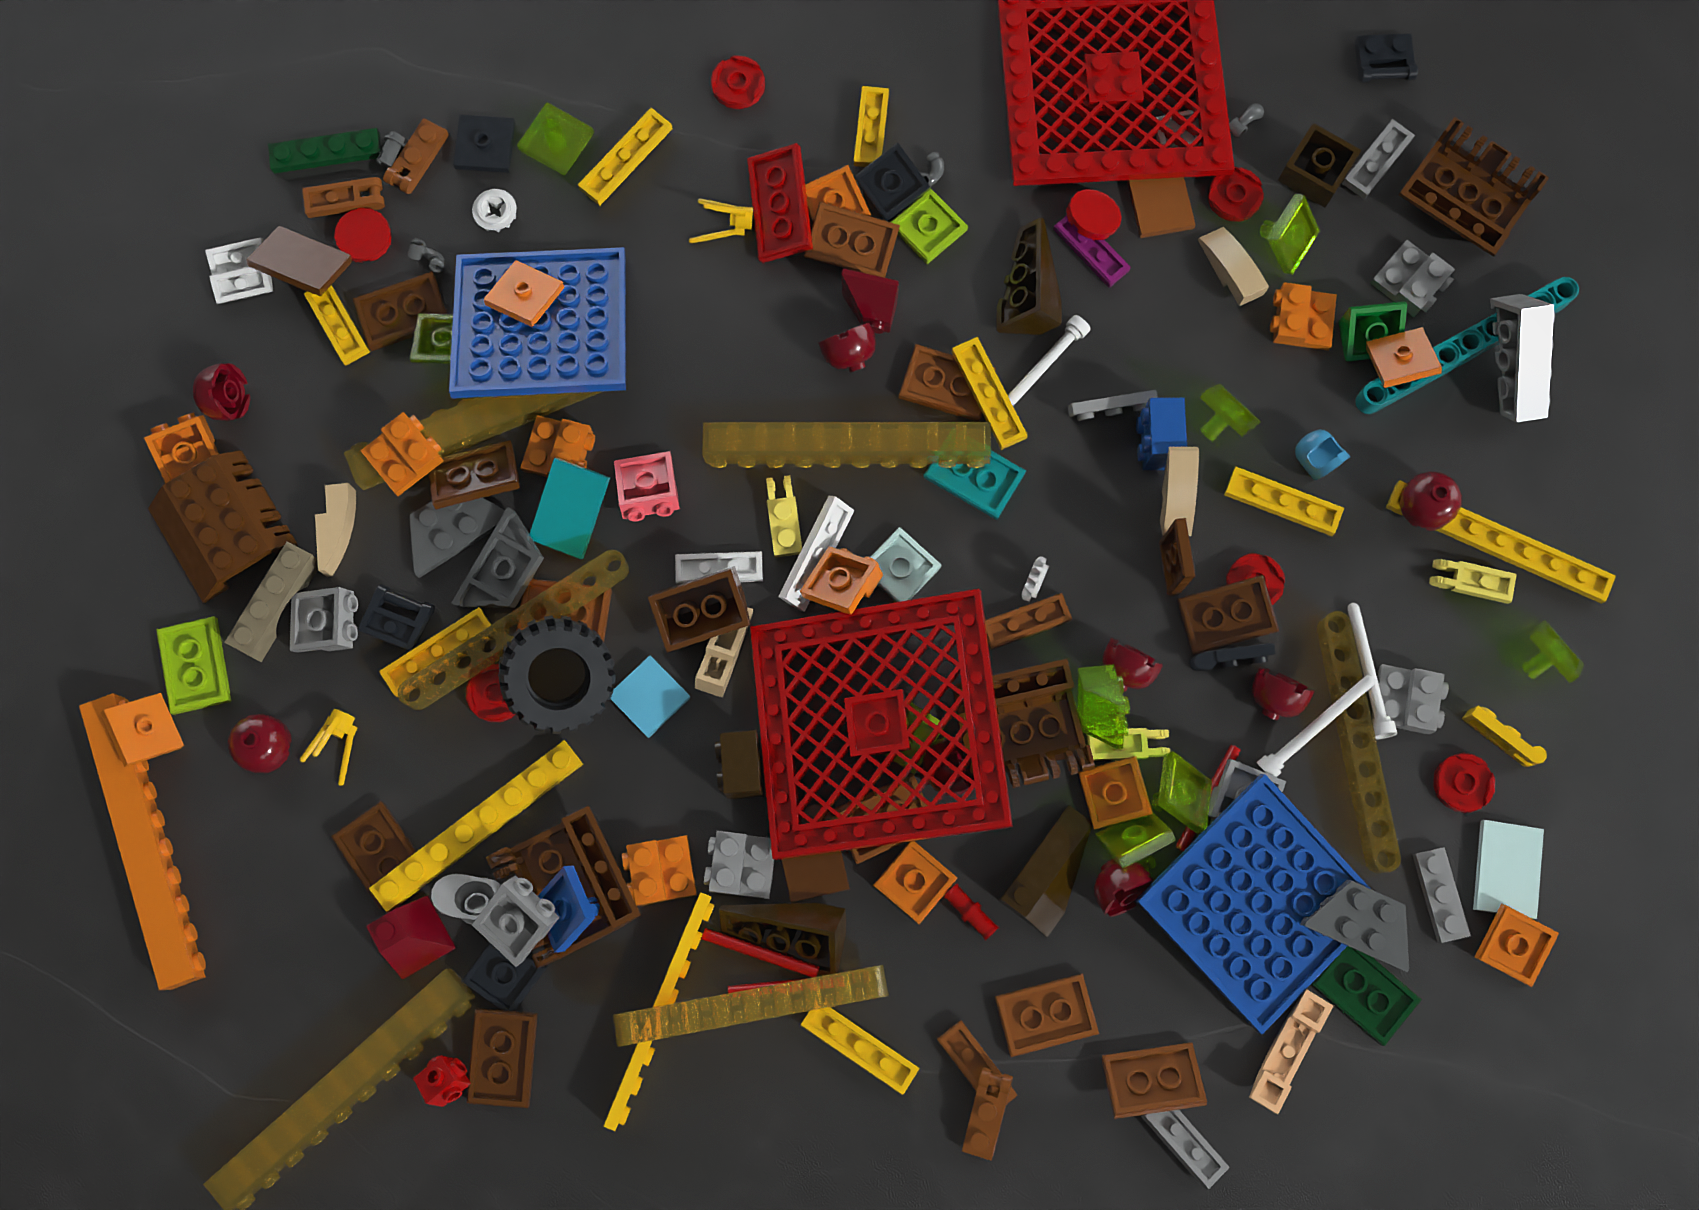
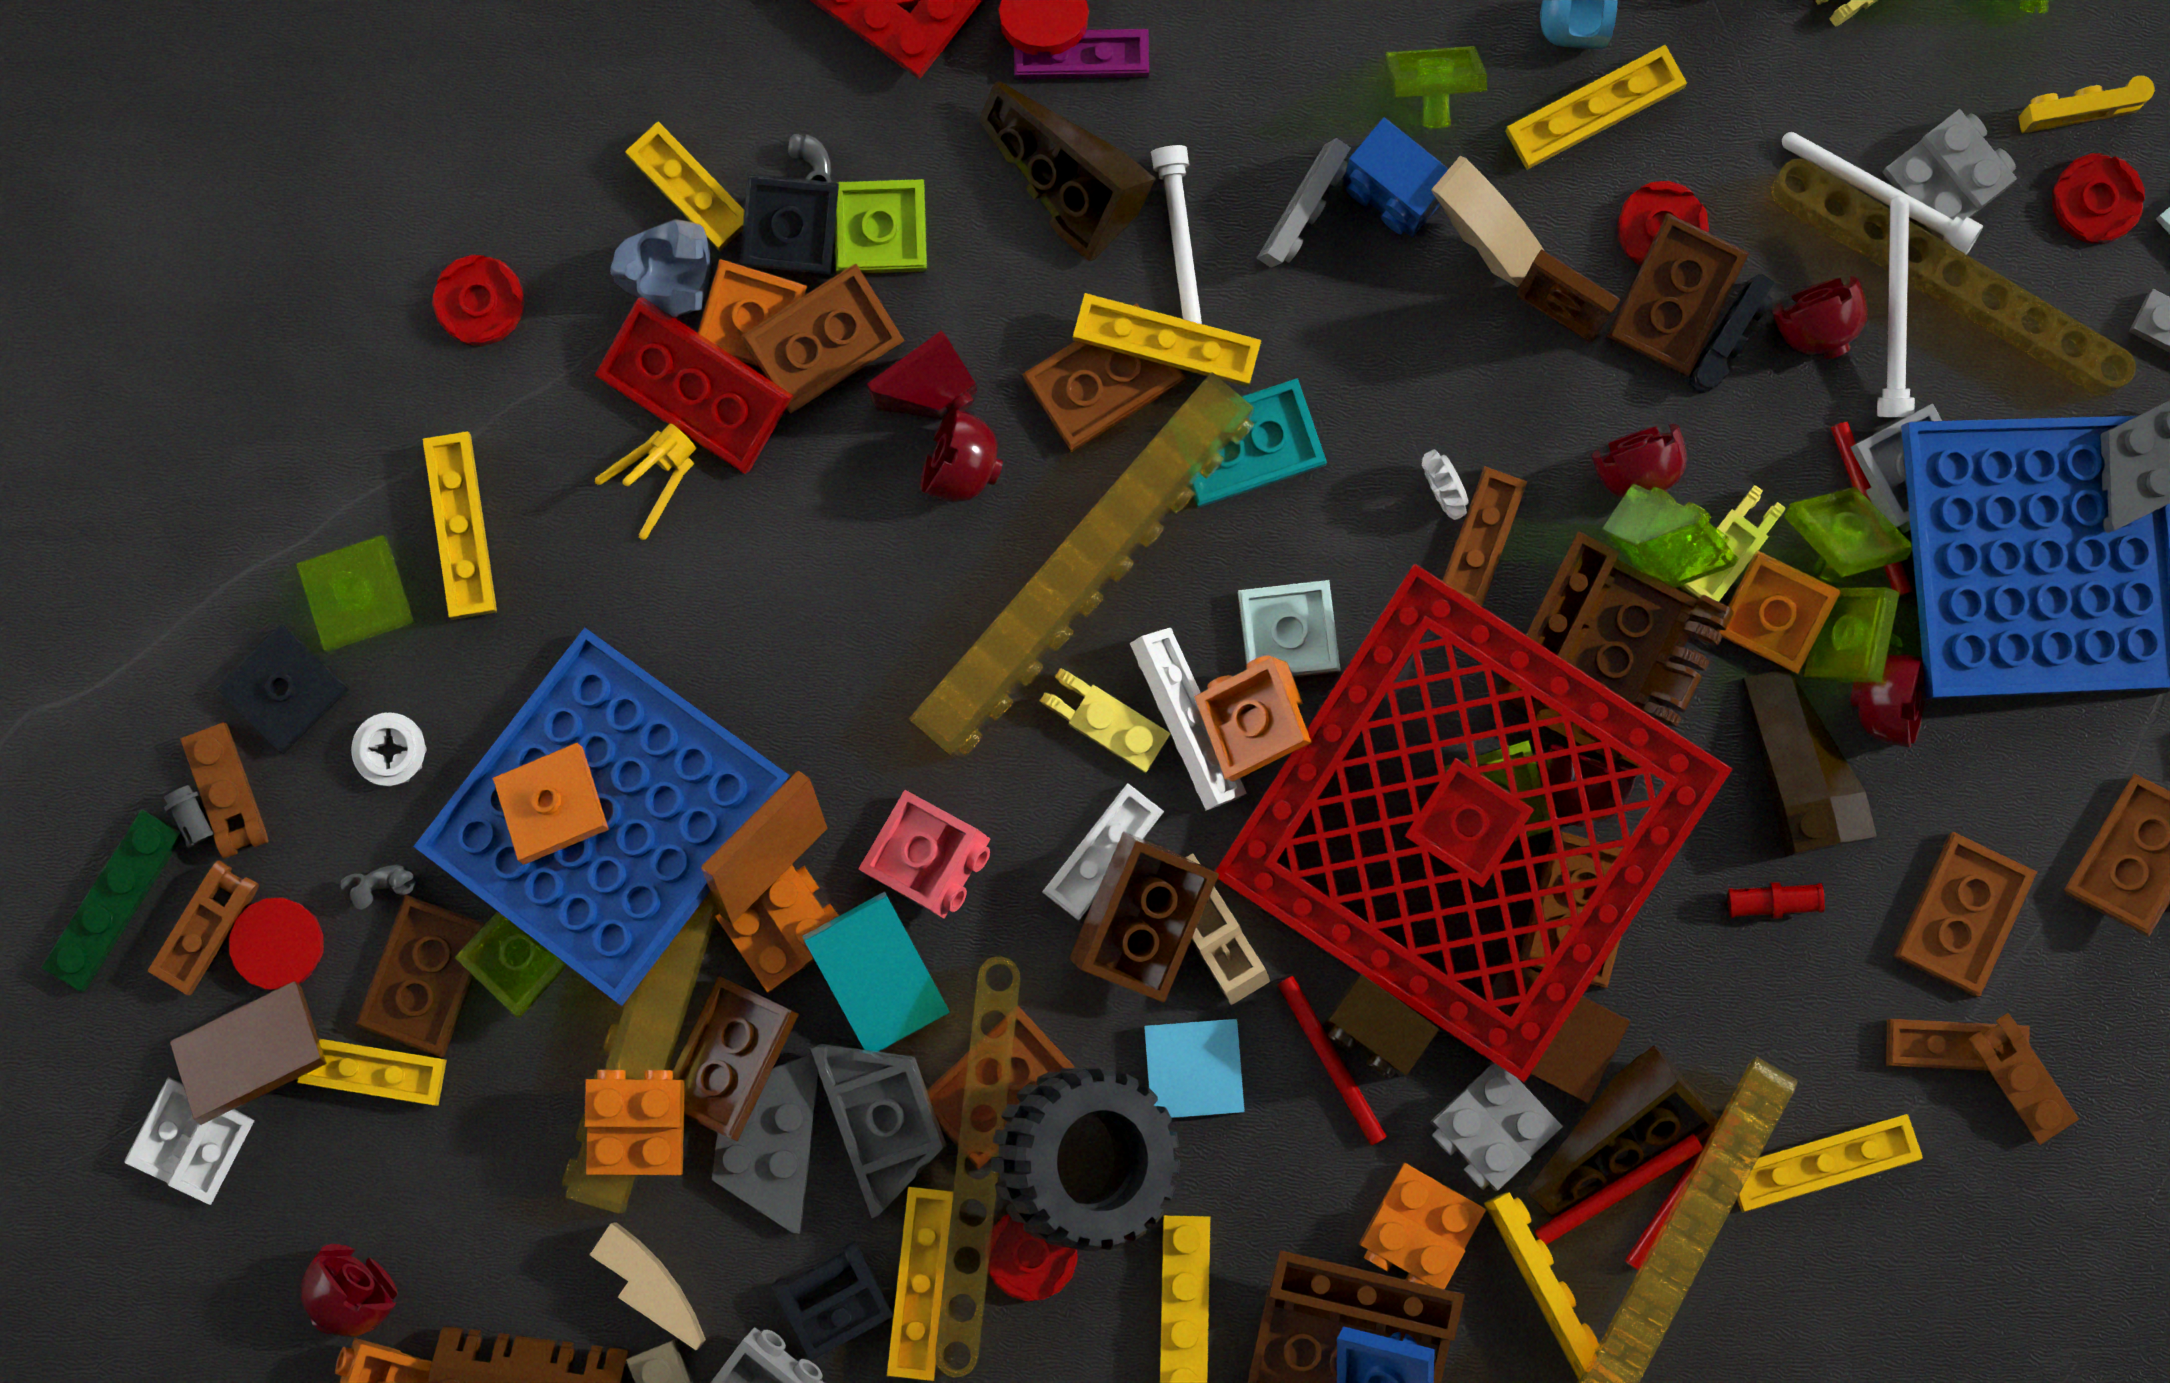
camera: 50 degrees left, 5 degrees up
(582, 402) = (764, 847): none -> dark orange tile
(707, 760) = (1332, 1060): none -> red bar
(823, 144) = (666, 266): none -> sand blue piece
(915, 881) = (1687, 936): orange plate -> none

